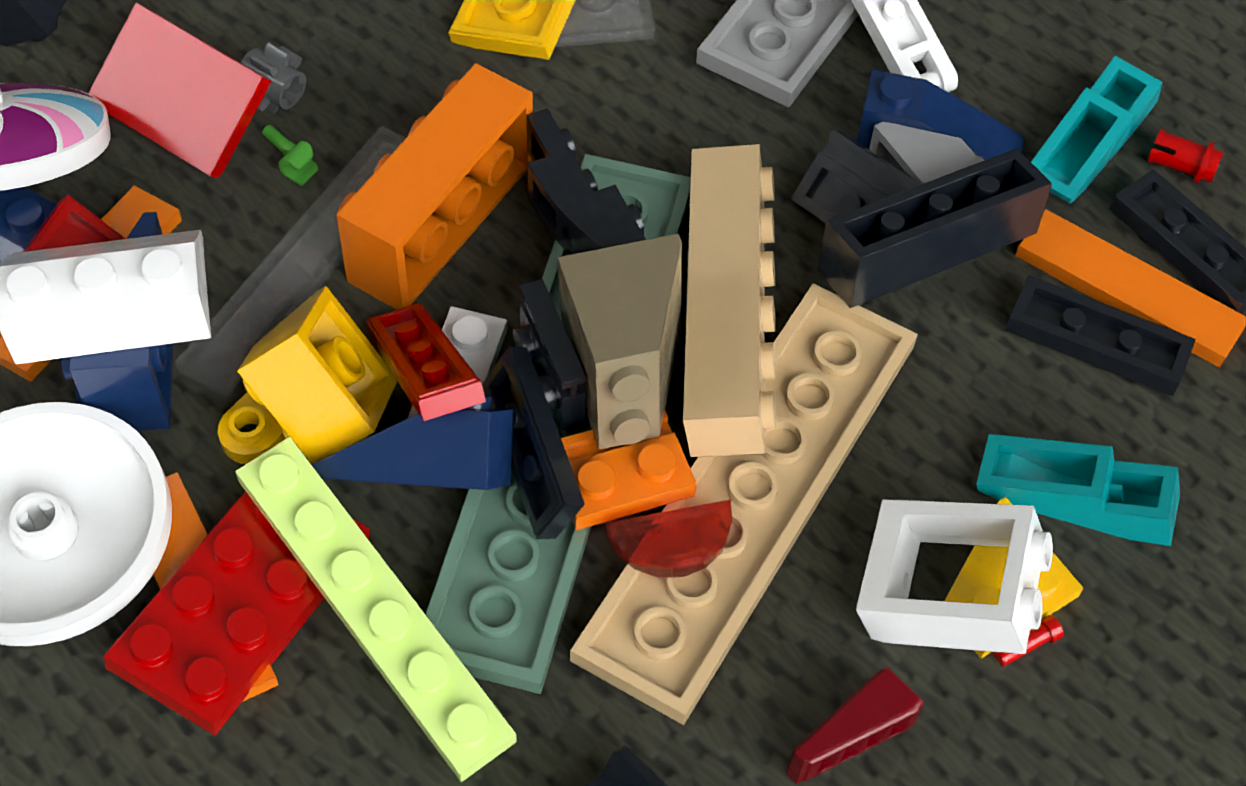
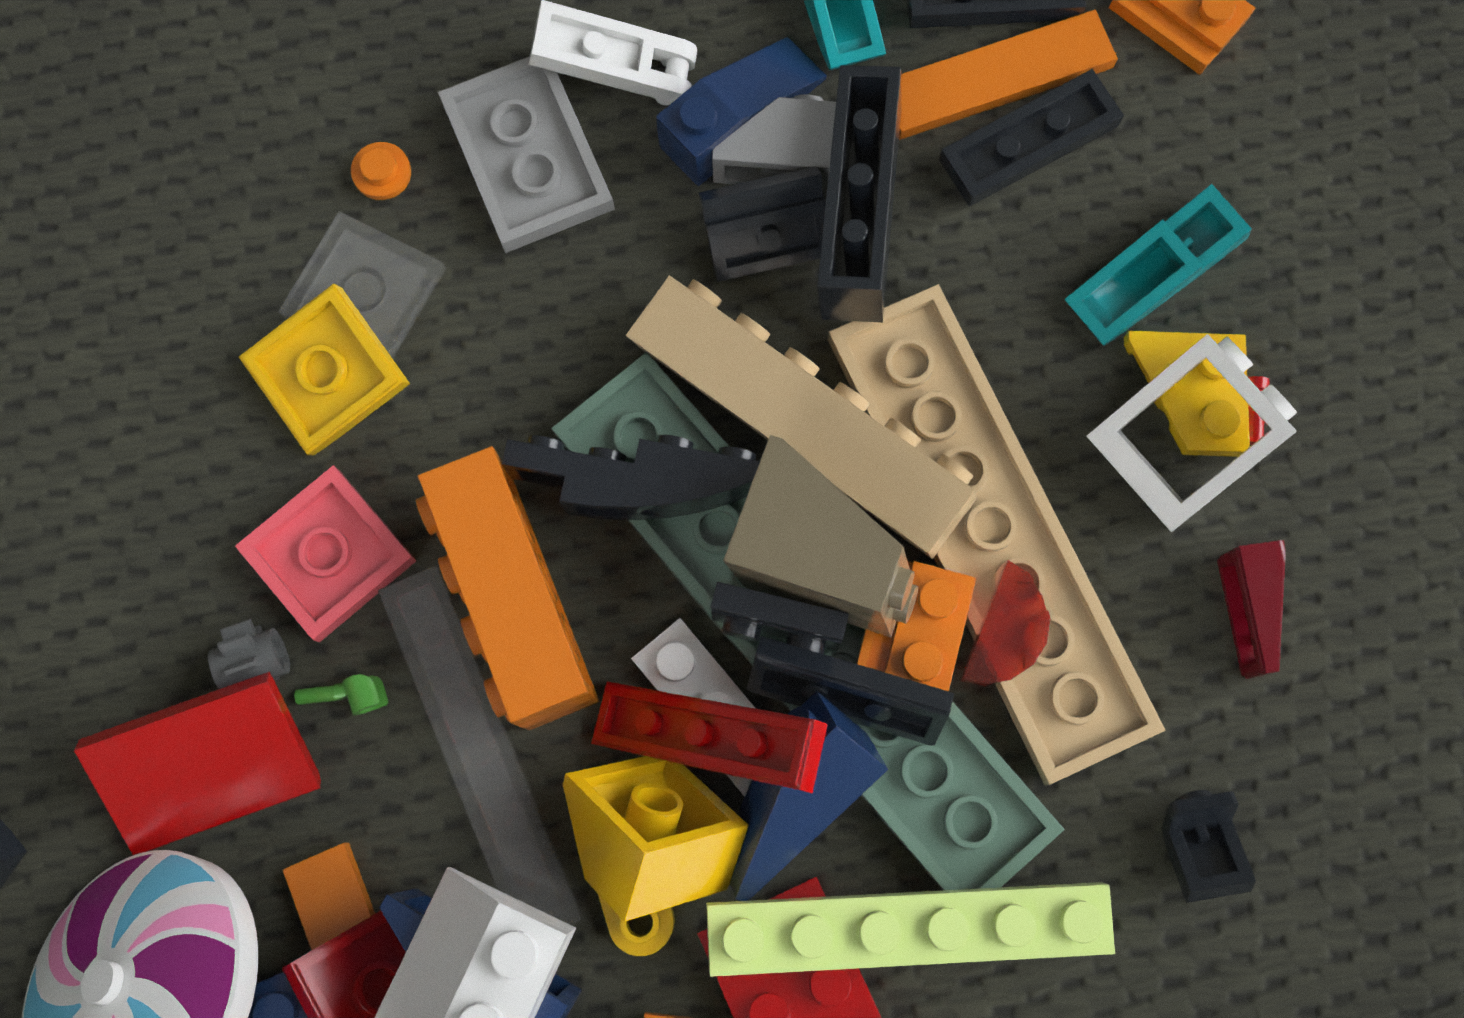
camera: 50 degrees left, 20 degrees up
(383, 80) = (325, 554): none -> coral plate

